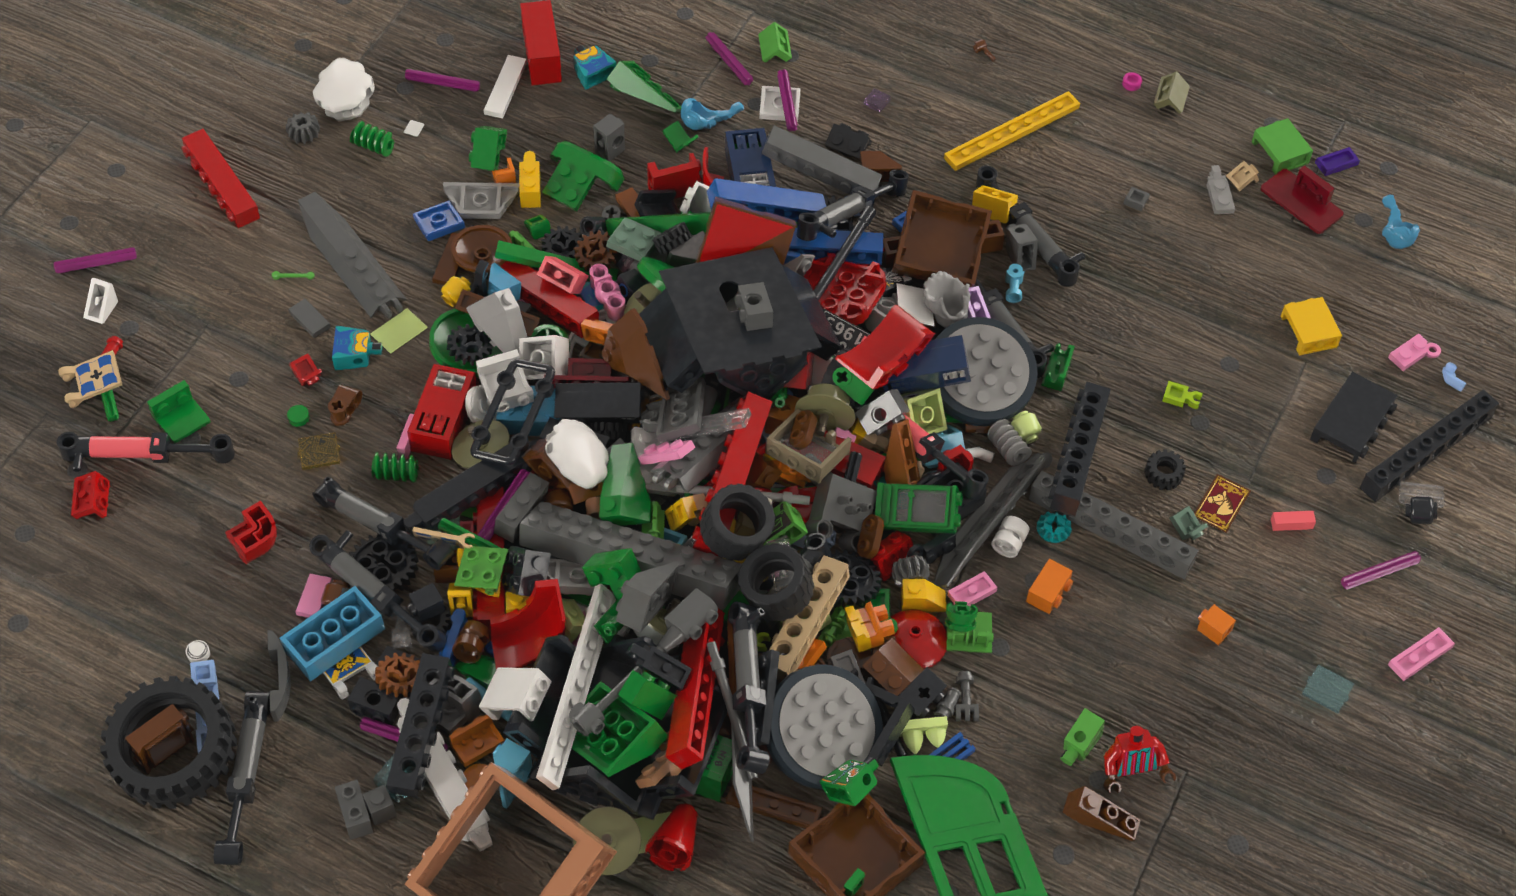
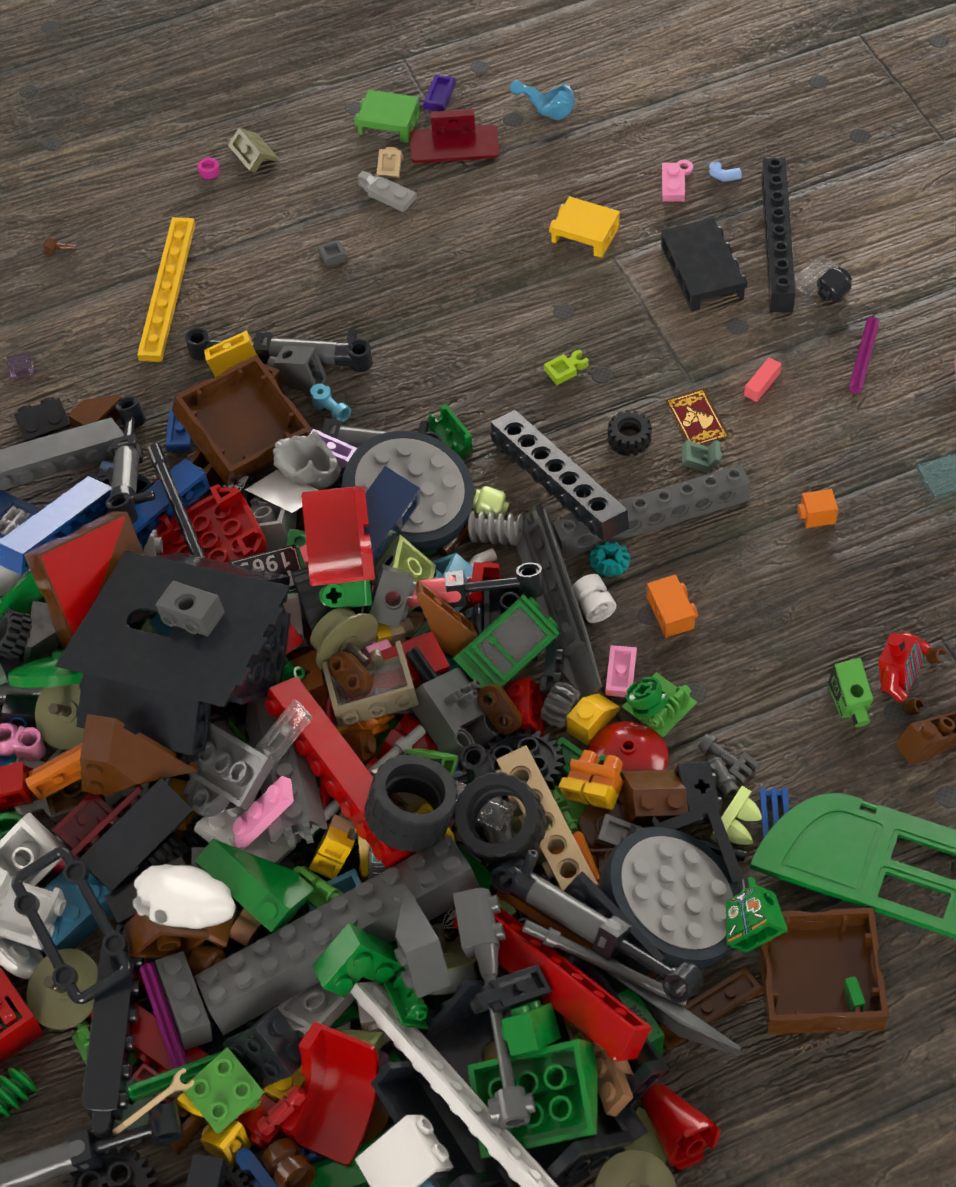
camera: 45 degrees left, 0 degrees up
(498, 609) = (281, 1110): none -> red axle

